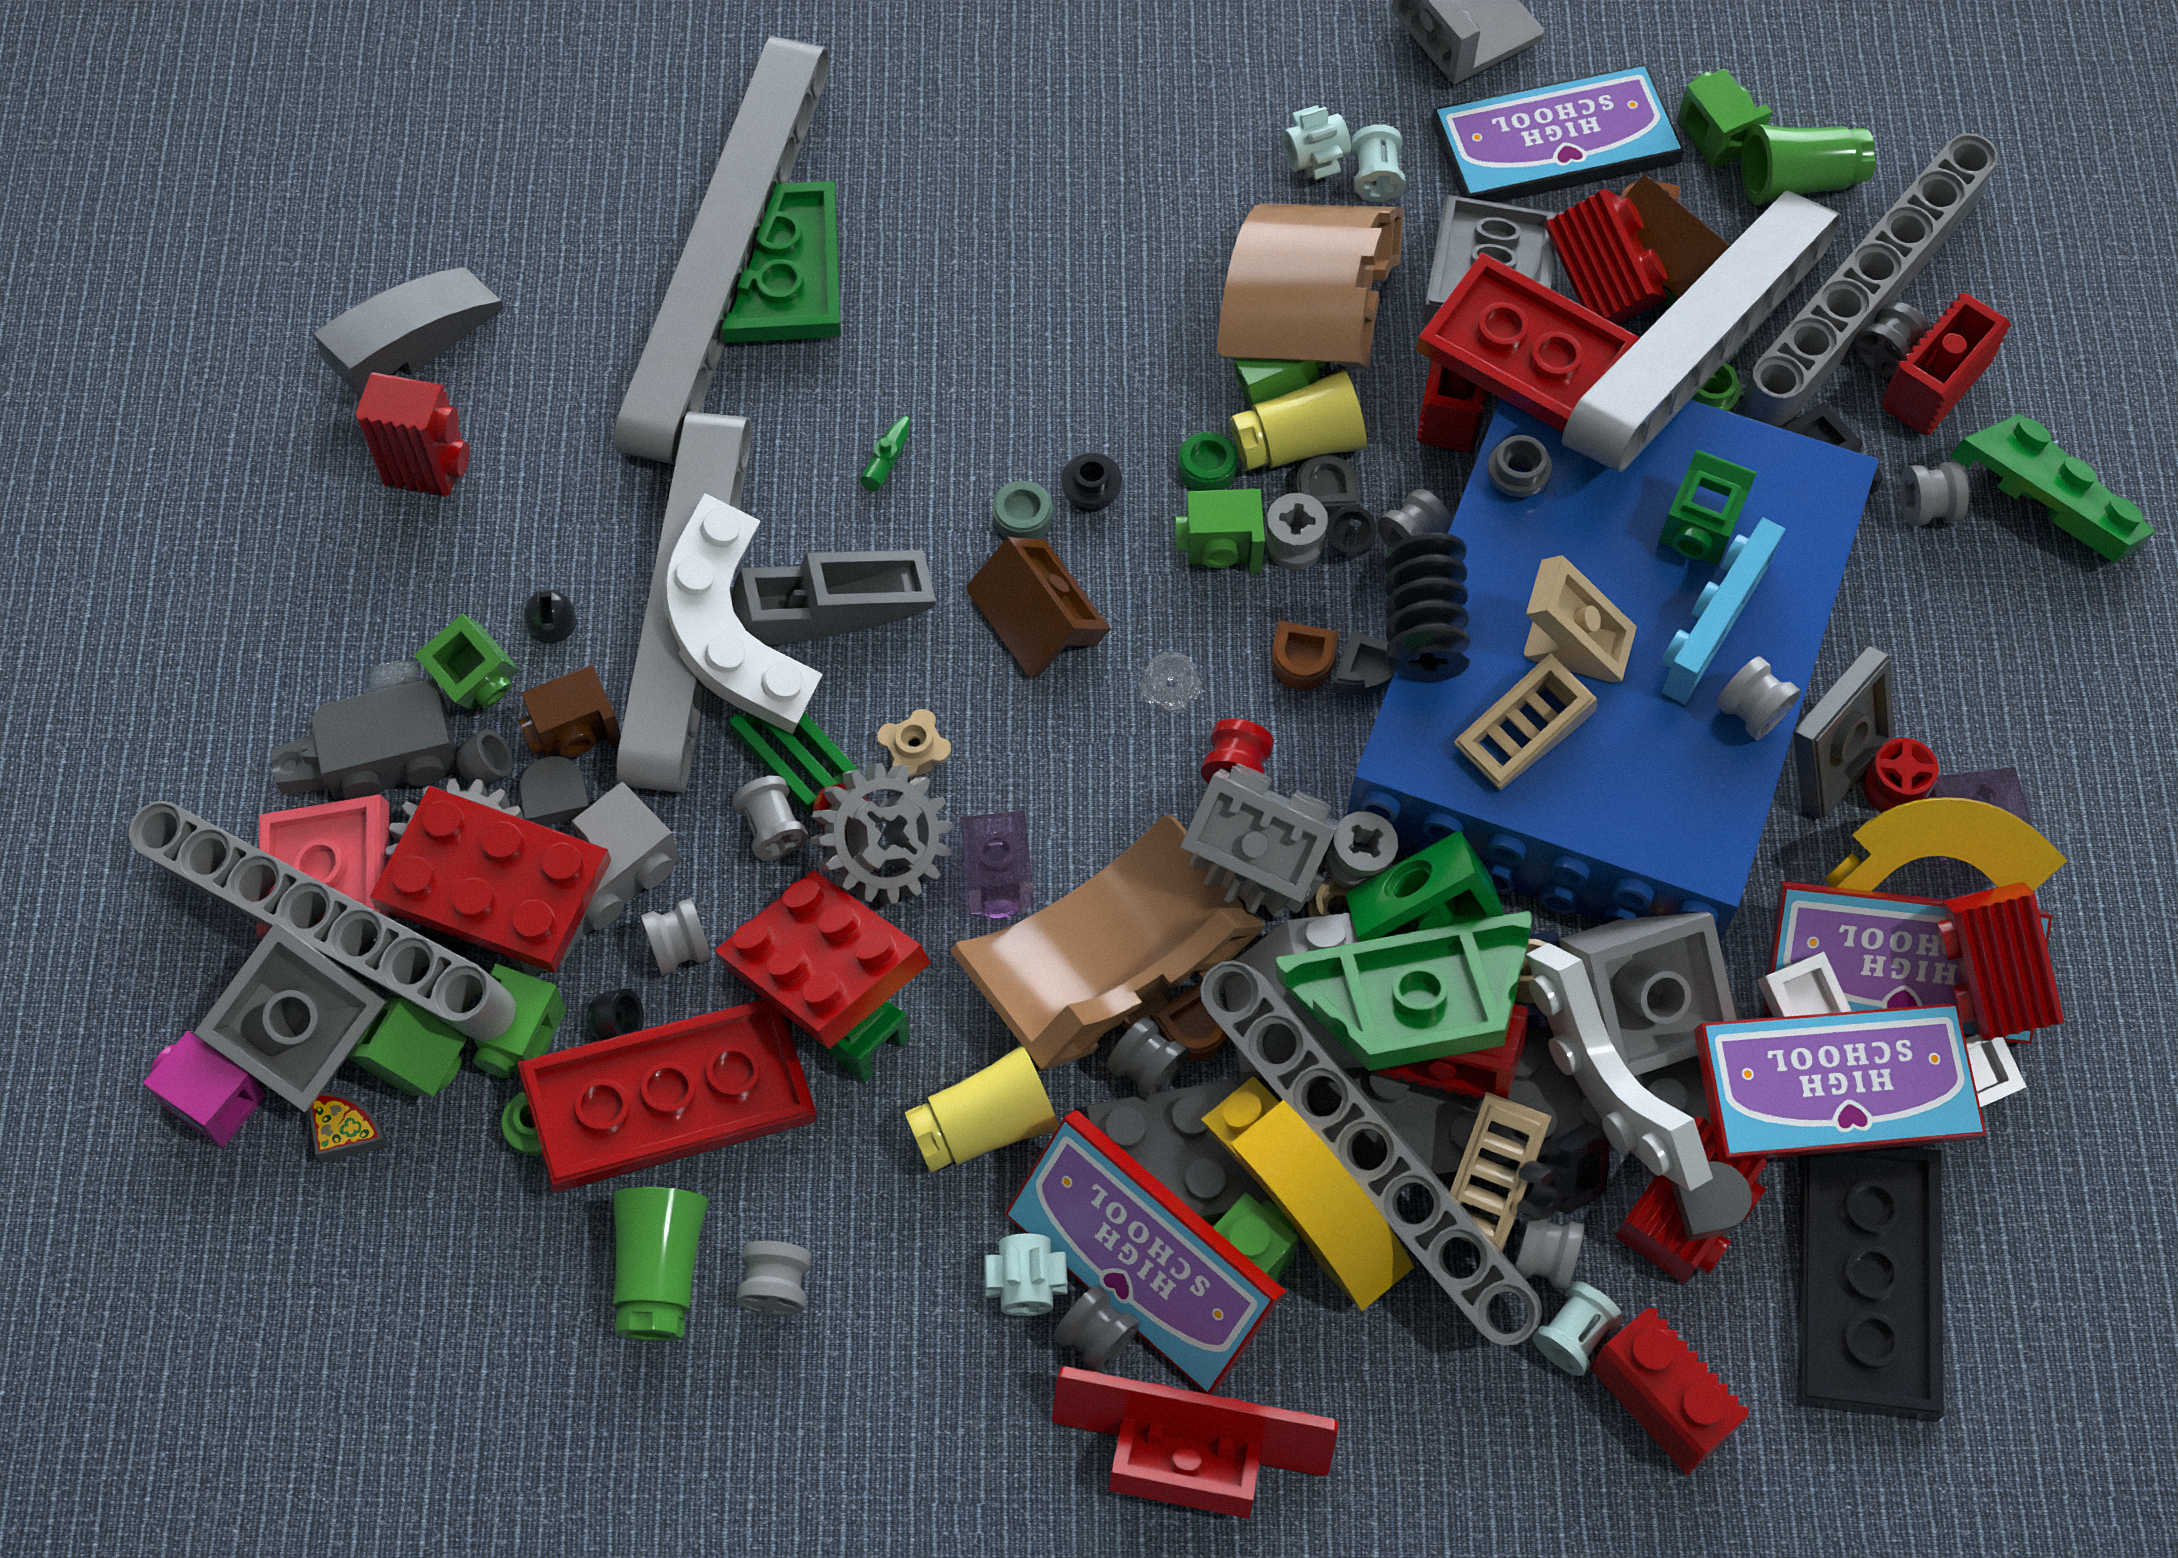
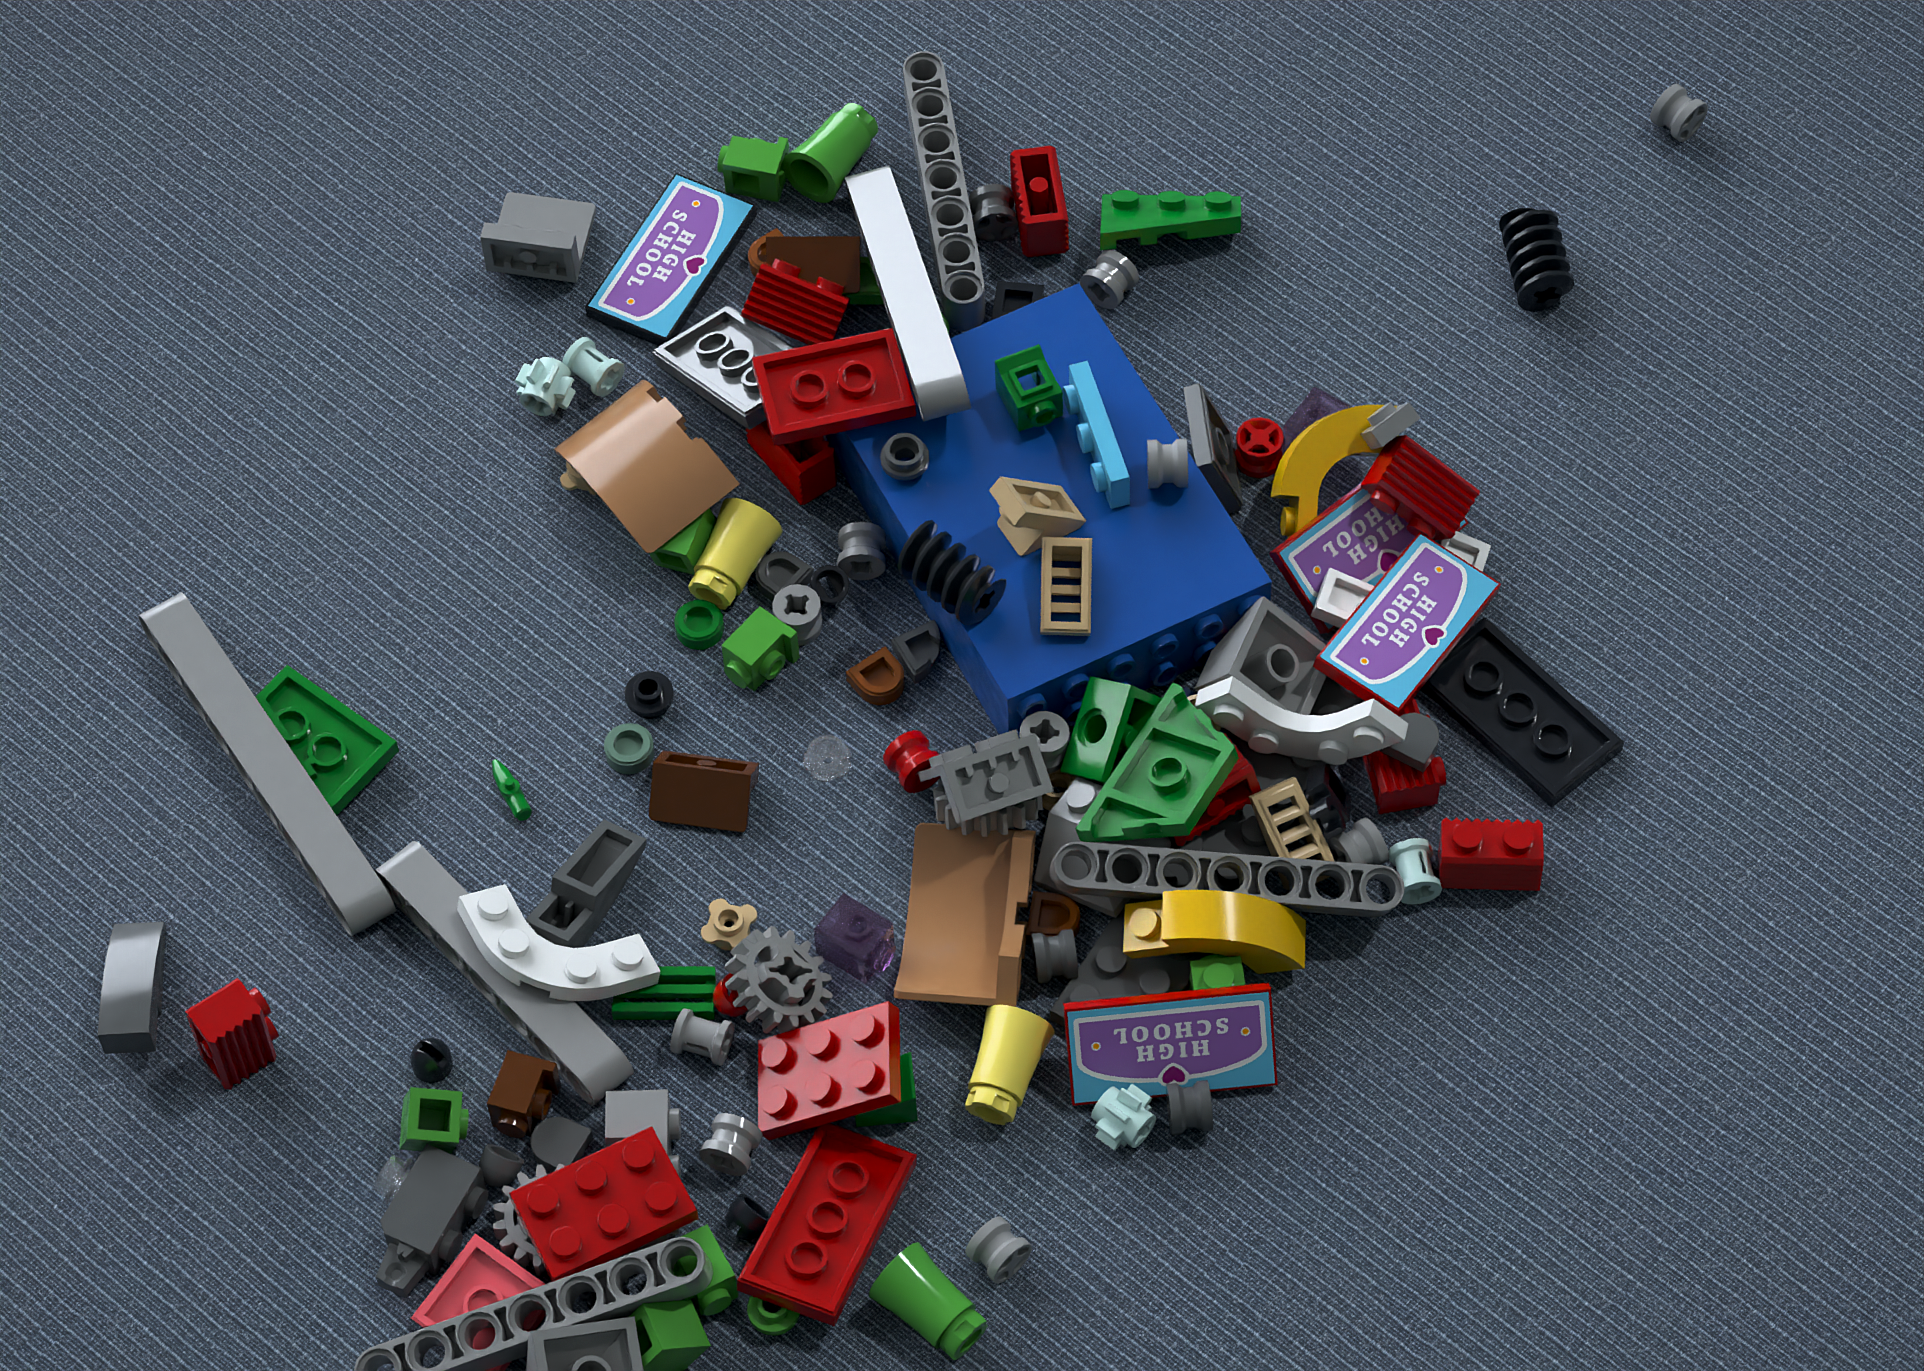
camera: 45 degrees left, 5 degrees down
(1191, 1443) = (1295, 1111): red bracket -> none
(2032, 865) = (1388, 423): none -> light grey plate

